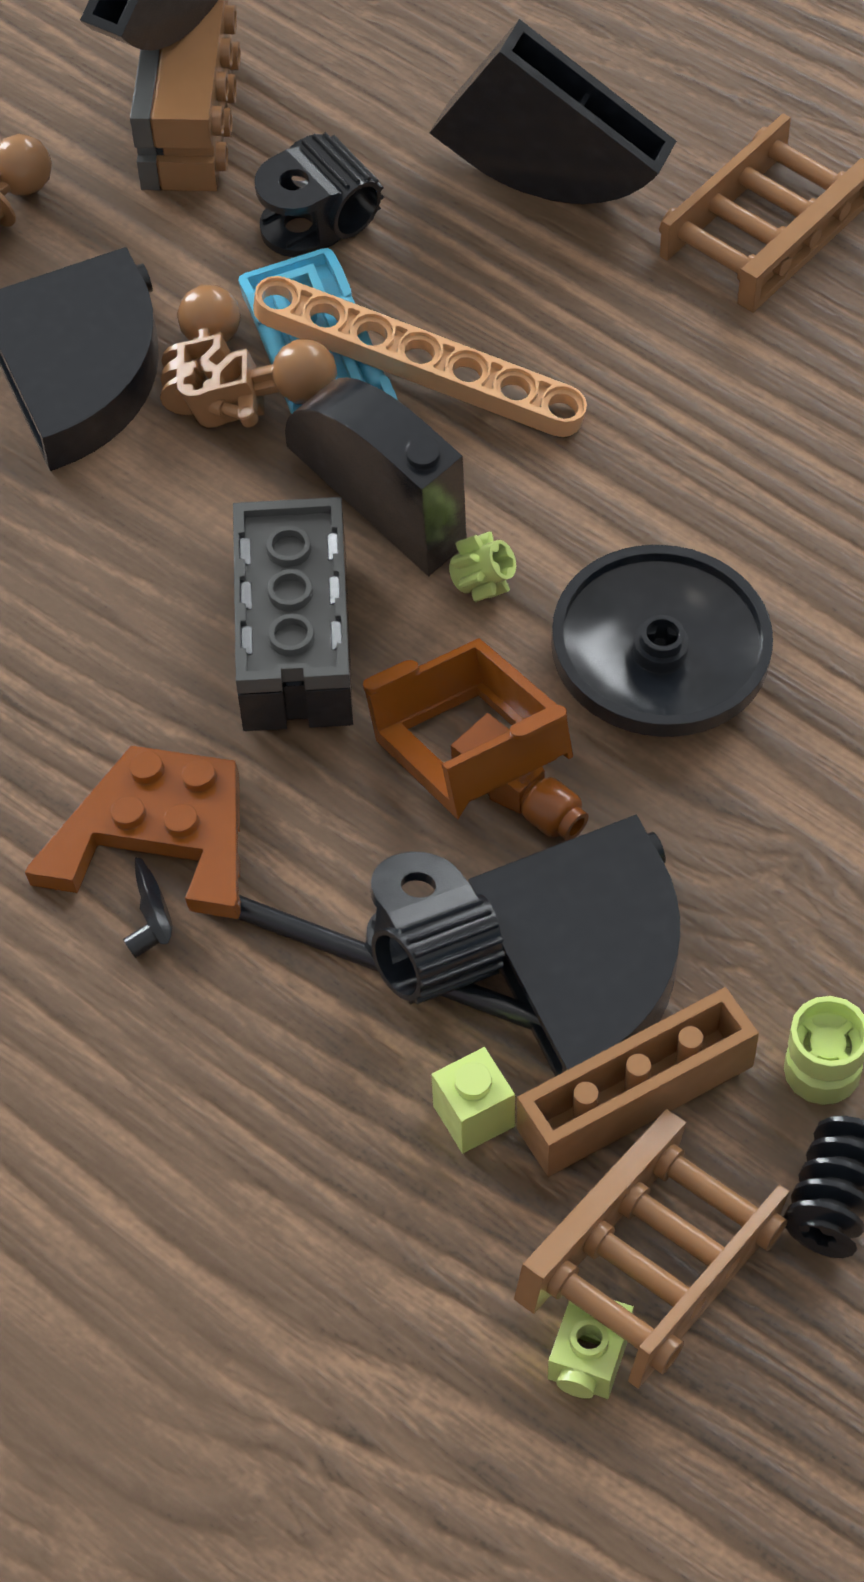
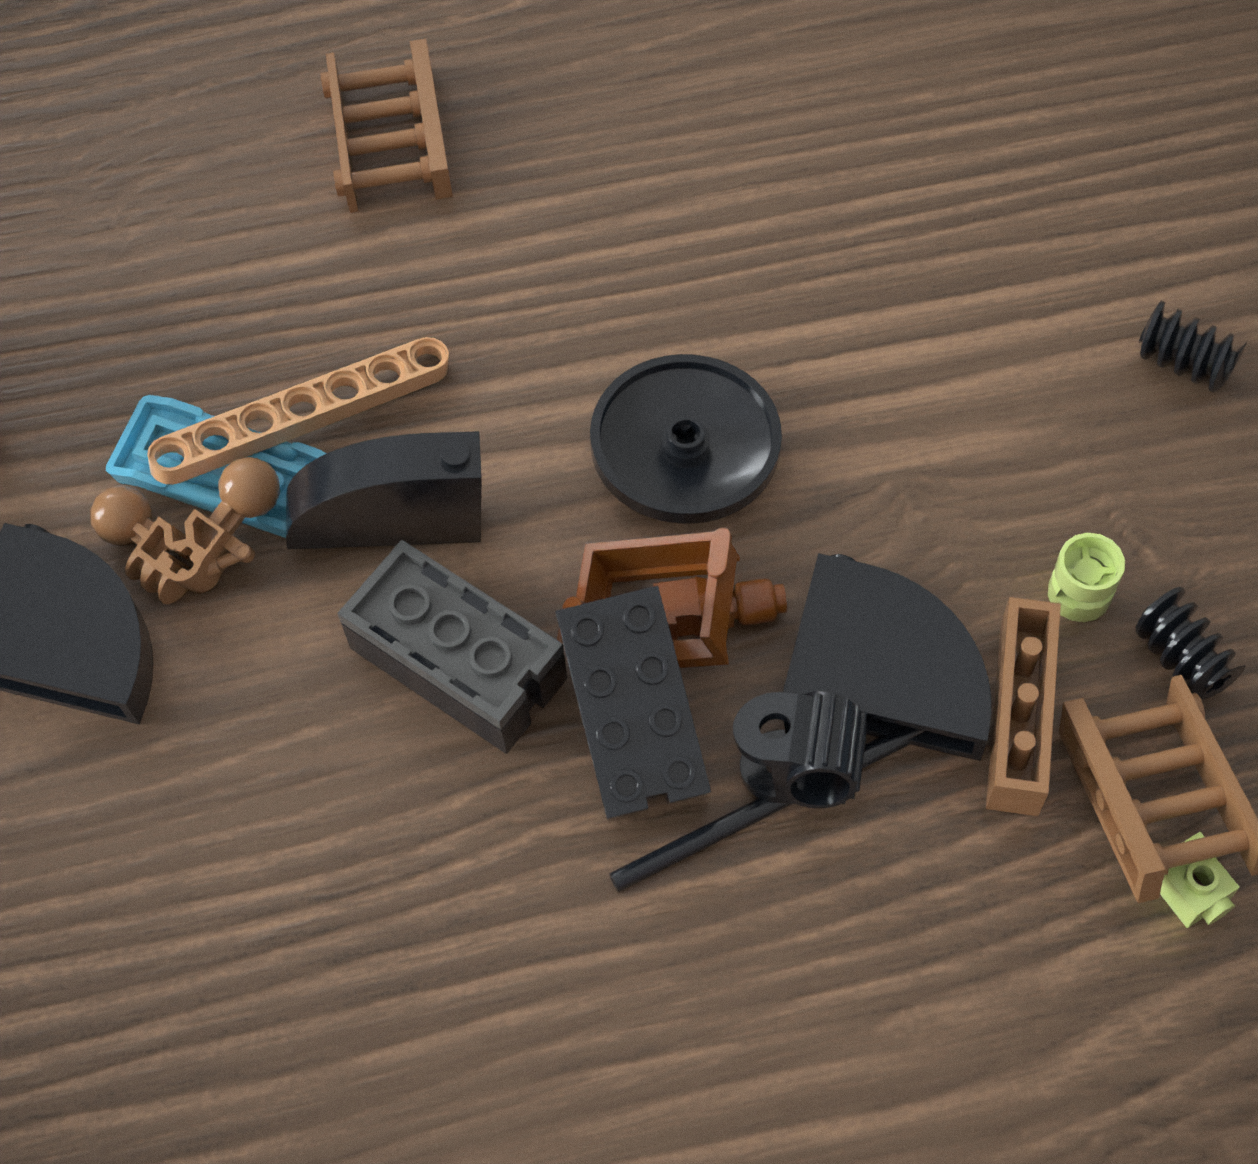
camera: 50 degrees left, 5 degrees up
(154, 910) = (609, 922): black bar -> none
(161, 807) = (531, 851): dark orange wing -> none
(336, 196) = (84, 361): black piece -> none
(345, 767) = (632, 701): none -> black piece
(473, 1100) = (953, 818): yellowish green brick -> none
(482, 566) = (519, 500): yellowish green gear -> none
(550, 126) = (197, 185): black brick -> none

